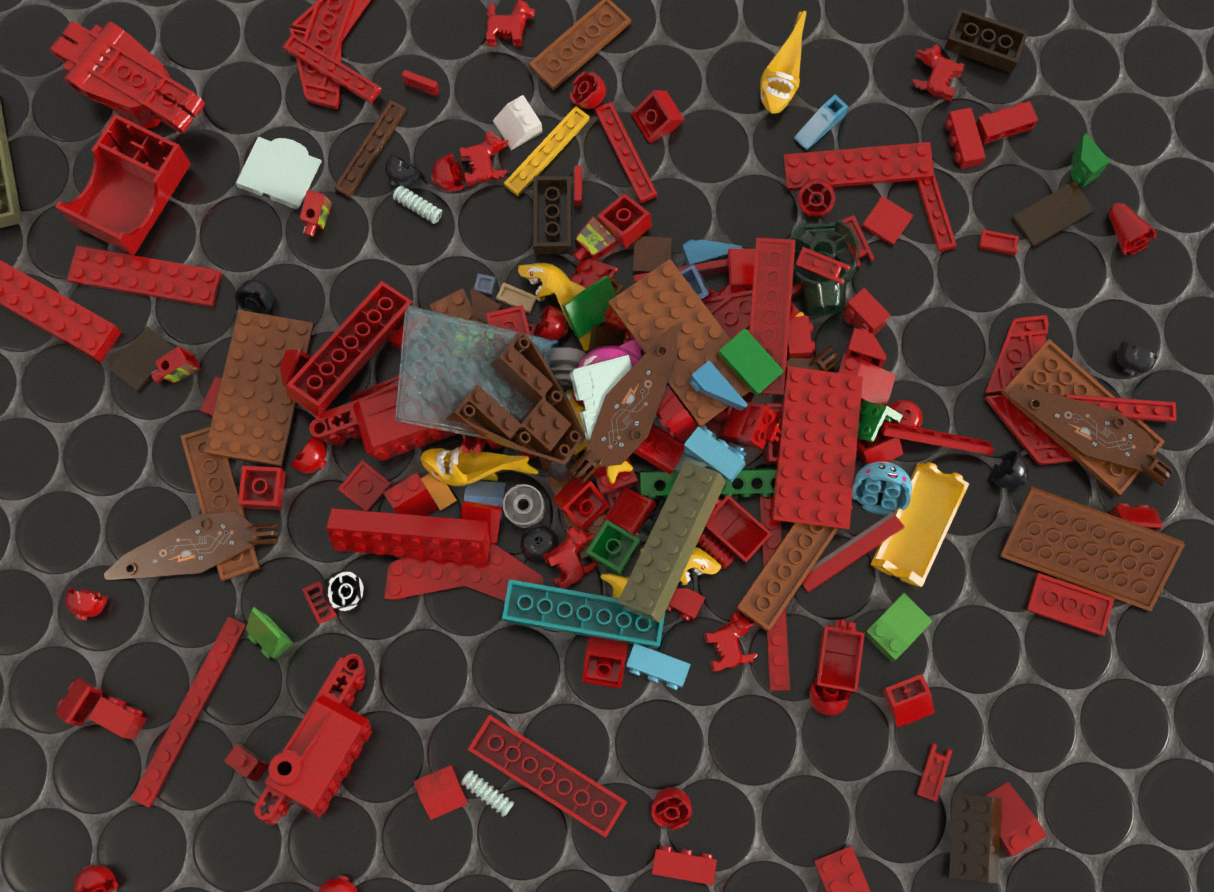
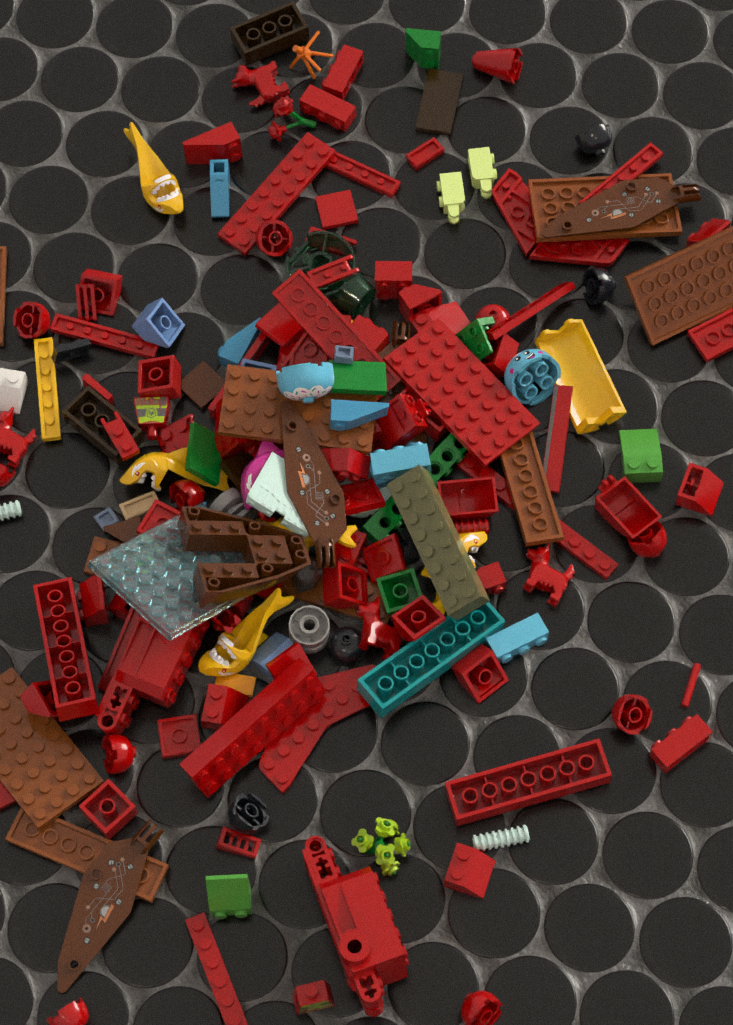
camera: 45 degrees left, 10 degrees down
(400, 706) = (383, 853): none -> lime plant
(549, 236) = (120, 437): none -> red hinge
(590, 139) = (71, 350): none -> black plate
(598, 581) = (417, 619): none -> red slope
(629, 126) = (93, 300): none -> red tile
(669, 180) = (158, 324): none -> medium blue slope
(703, 329) = (306, 381): none -> medium azure cylinder
(740, 832) = (690, 685): none -> red piece
(759, 335) = (343, 354): none -> sand blue tile
(850, 86) = (214, 144): none -> red slope
(928, 106) = (284, 107): none -> red plant
(981, 294) = (452, 195): none -> yellowish green hinge
(992, 80) = (305, 54): none -> orange plant
(1024, 296) = (481, 170): none -> yellowish green hinge

